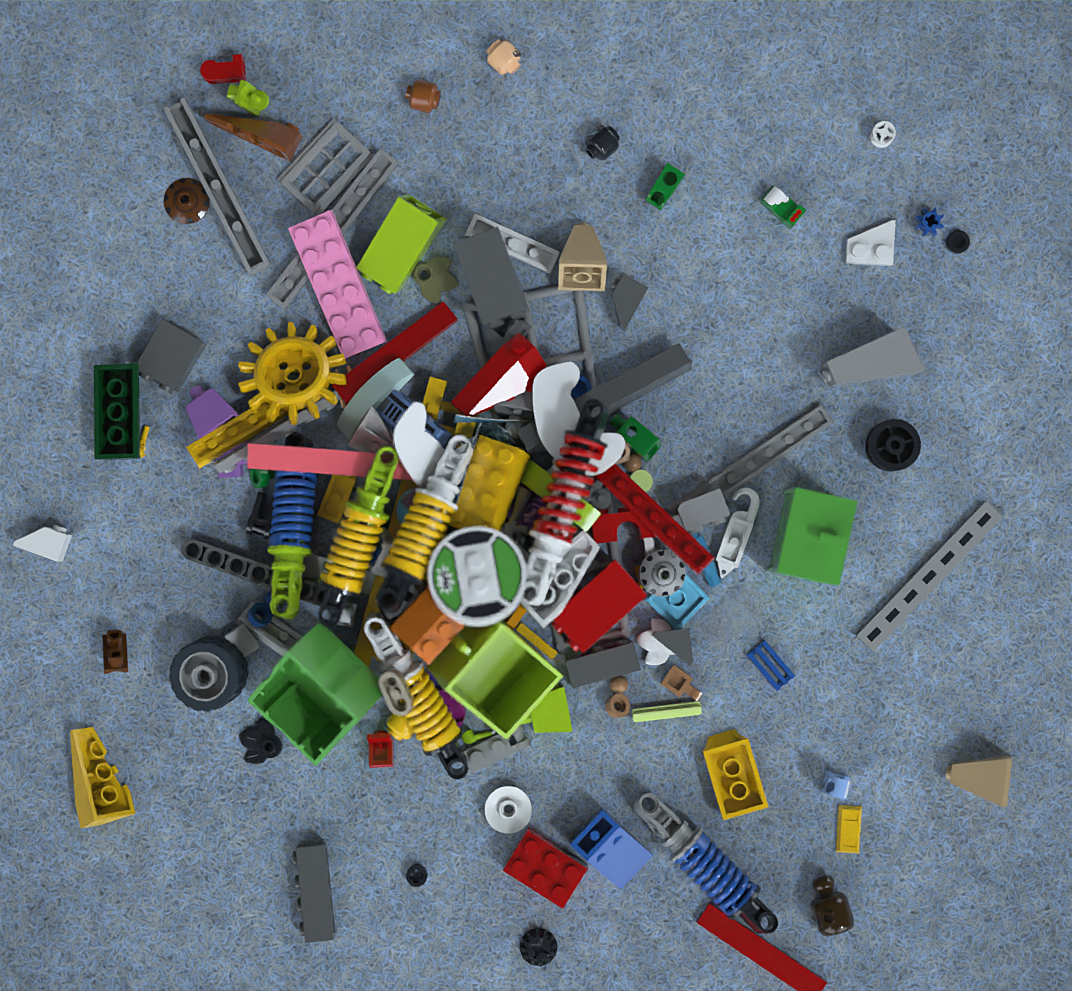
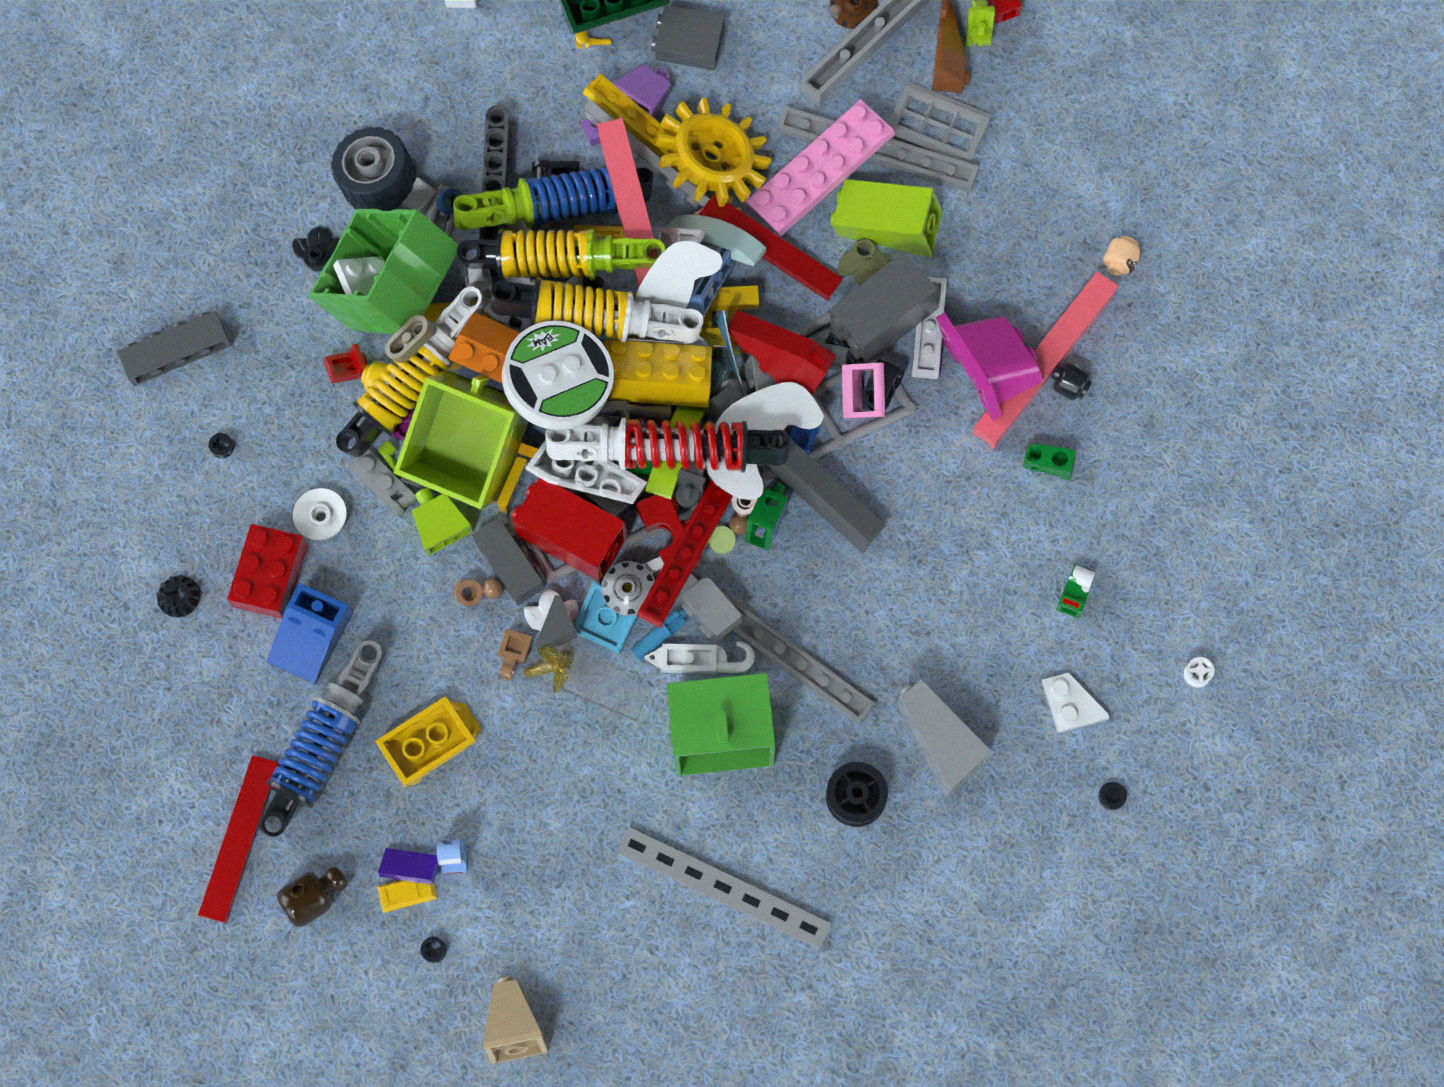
camera: 65 degrees right, 15 degrees down
(96, 789) = (221, 108): yellow wedge -> none
(115, 652) = (368, 78): reddish brown hips -> none
(260, 477) = (594, 159): green tile -> none
(312, 713) = (358, 273): none -> white wing
(423, 96) = (1049, 190): dark orange head -> none
(550, 299) = (892, 378): none -> black piece
(552, 329) = (853, 391): none -> bright pink tile
(566, 201) = (992, 358): none -> dark pink windscreen
(575, 156) = (1051, 353): none -> coral tile
(582, 261) = (935, 396): tan slope -> none
(626, 298) = (912, 460): dark grey slope -> none
(666, 711) = (478, 648): yellowish green axle -> none
(703, 655) = (554, 663): none -> clear yellow plant
(783, 681) = (577, 724): blue tile -> none
(831, 821) = (408, 866): none -> dark purple tile
(901, 829) = (424, 950): none -> black bush
(935, 220) = (1116, 759): blue gear -> none

